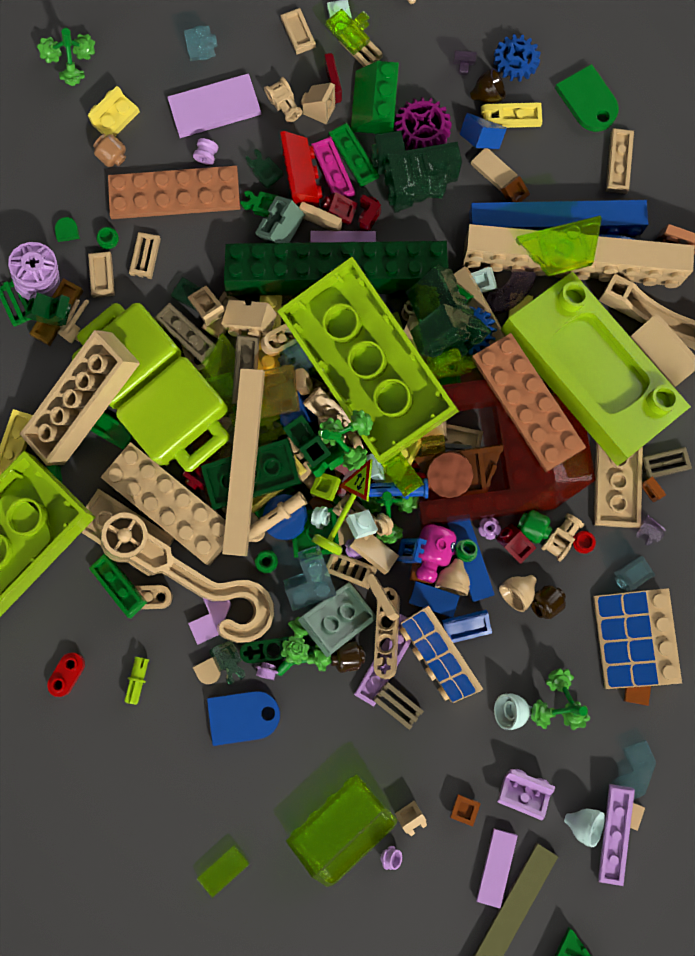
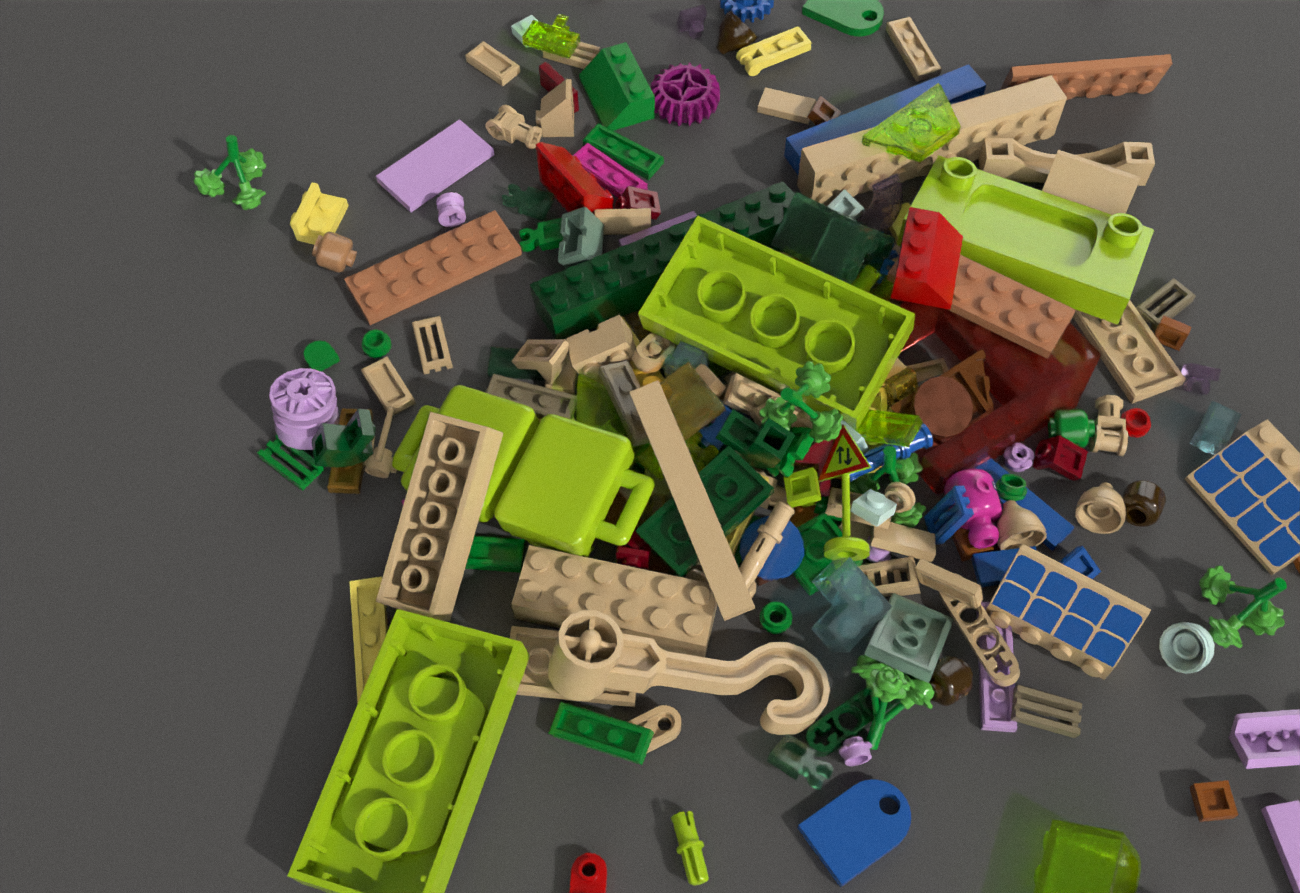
camera: 25 degrees left, 20 degrees down
(200, 43) = (389, 109): clear light blue brick -> none
(206, 626) = (746, 732): lavender tile -> none
(207, 671) = (778, 790): tan tile -> none
(320, 517) = (818, 524): light aqua plate -> none
(371, 212) = (675, 191): dark red bracket -> none
(410, 818) = (1155, 844): tan tile -> none
(415, 172) = (704, 134): clear green brick -> none
(482, 132) = (752, 74): blue slope -> none
(500, 363) = (927, 260): none -> red slope

